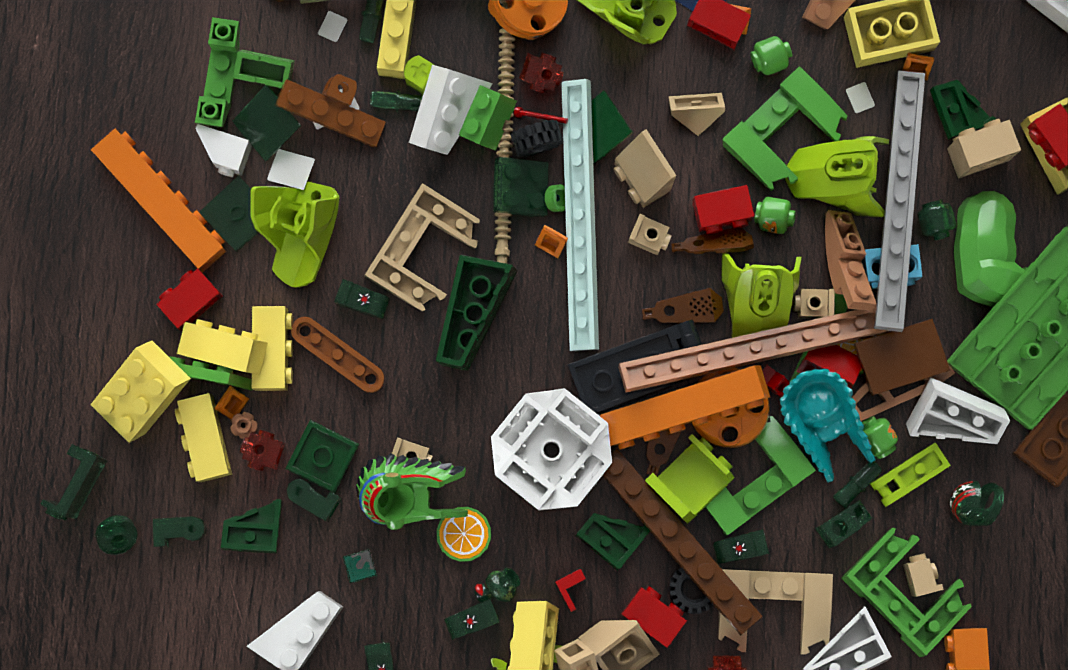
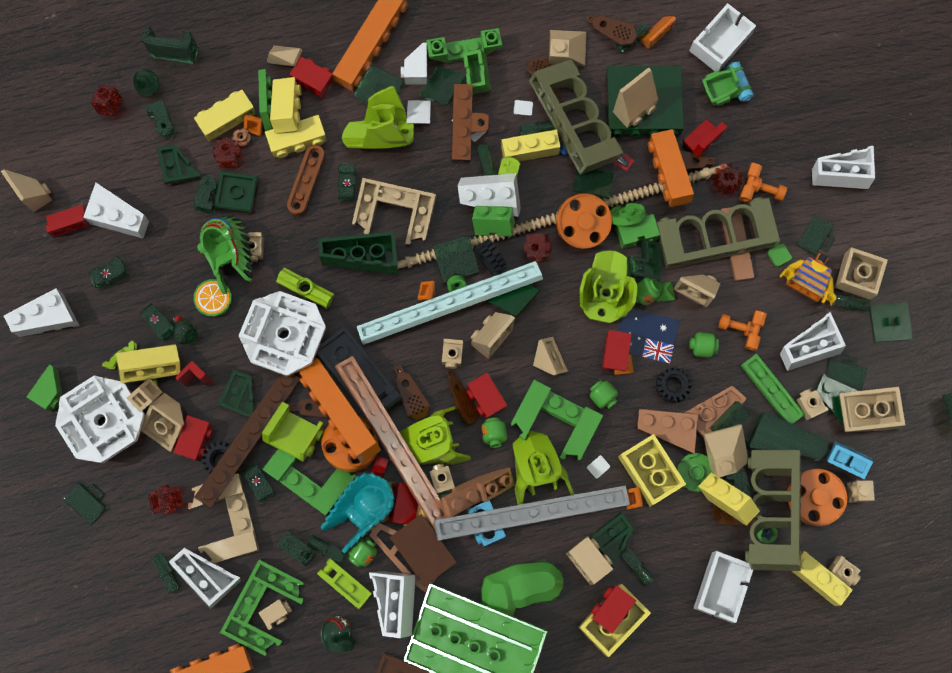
camera: 70 degrees right, 5 degrees down
(124, 598) = (106, 100): none -> clear red brick
(140, 391) = (240, 64): light yellow brick -> none
(144, 325) = (284, 55): none -> tan slope
(359, 566) = (172, 239): clear green tile -> none
(481, 416) = (315, 293): none -> lime piece
(519, 112) = (507, 242): red piece -> none
(936, 219) = (528, 545): clear green head -> none
(1006, 92) = (637, 566): none -> clear green axle

